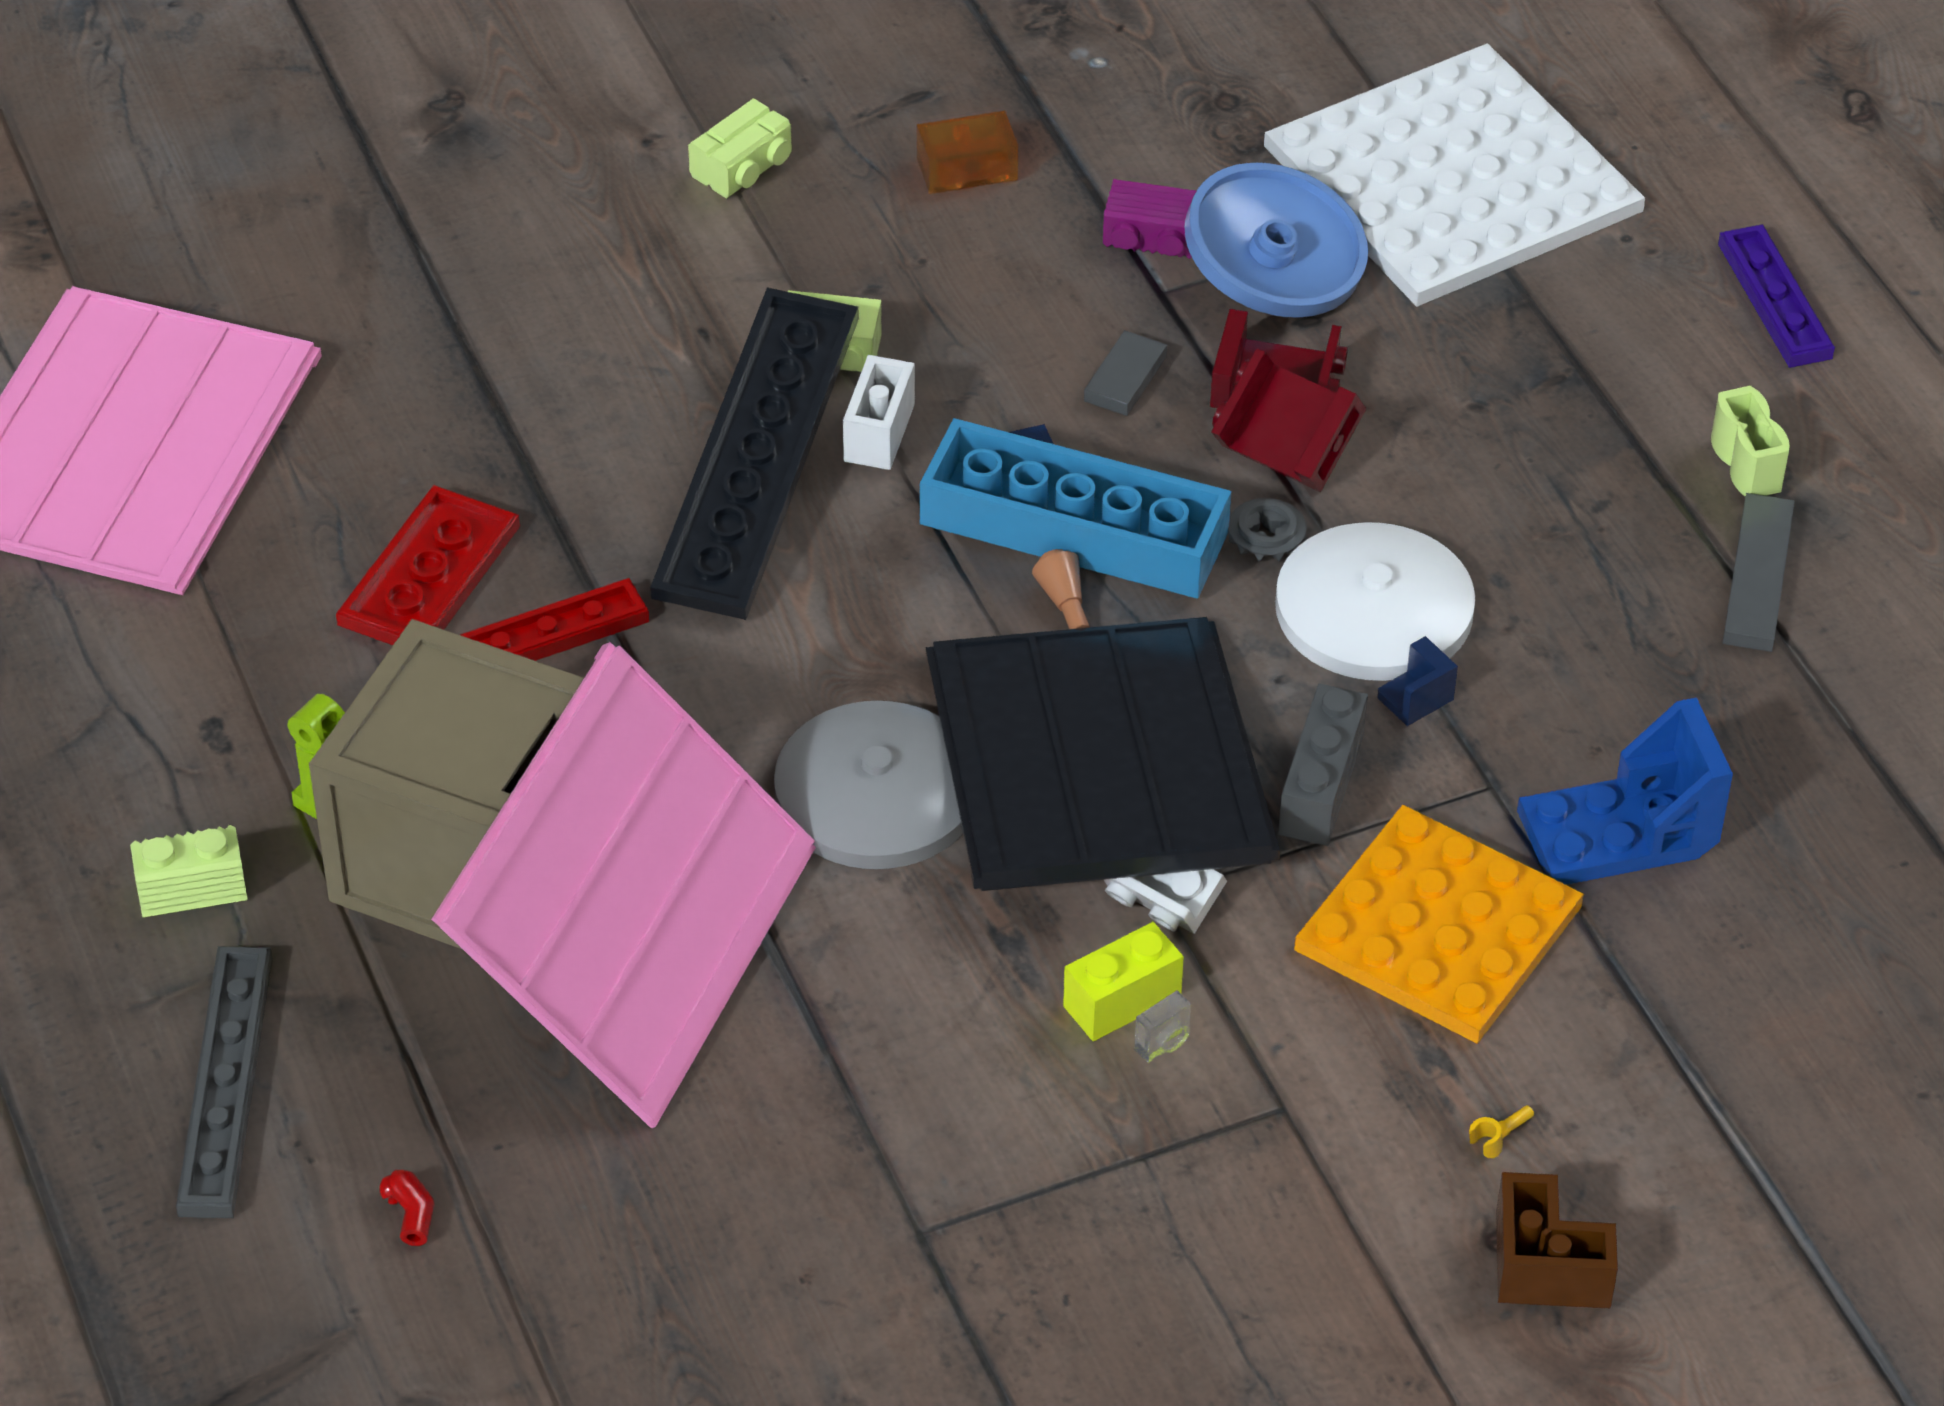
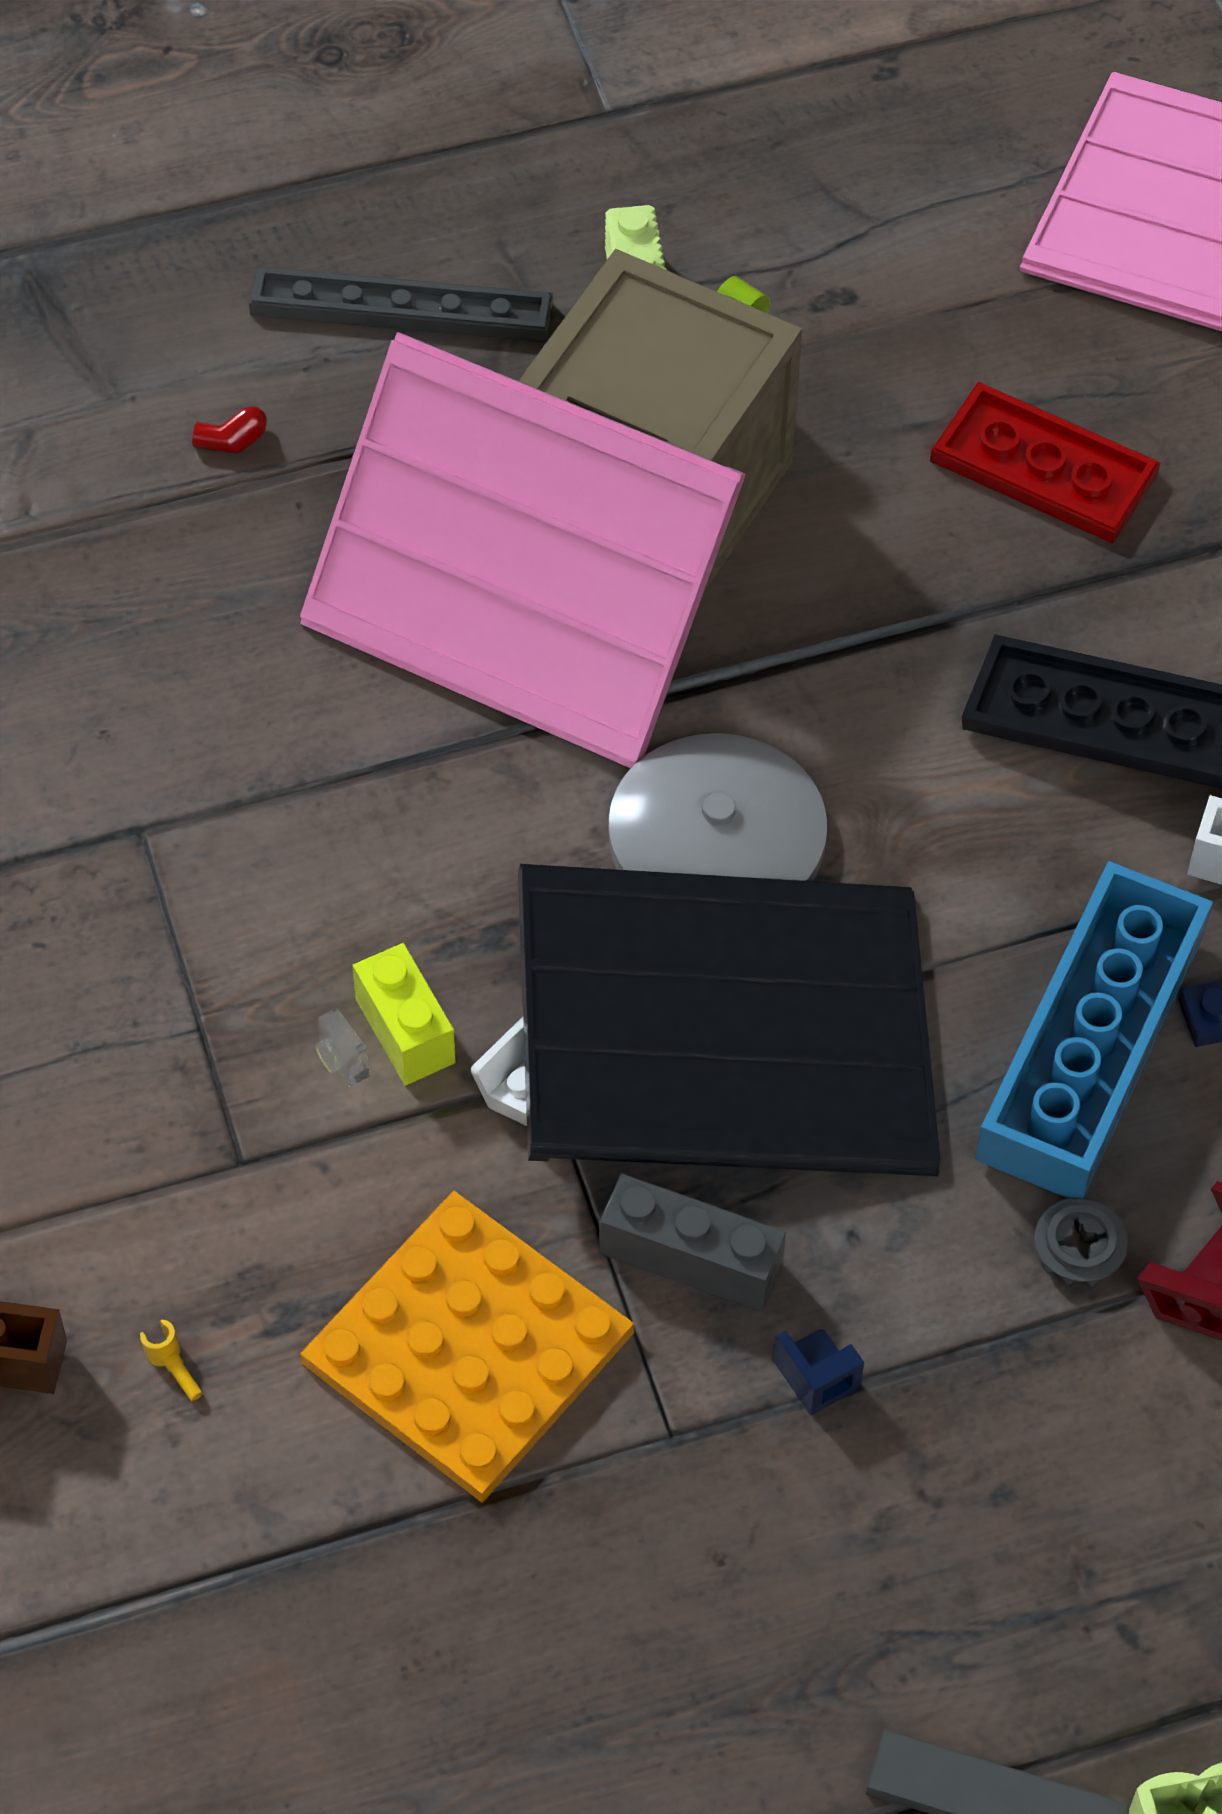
camera: 95 degrees right, 10 degrees up
(567, 622) = (953, 557): red tile -> none
(1060, 578) = (996, 1019): nougat cone -> none
(1368, 593) = (966, 1347): white dish -> none
(1655, 814) = (591, 1554): blue bracket -> none

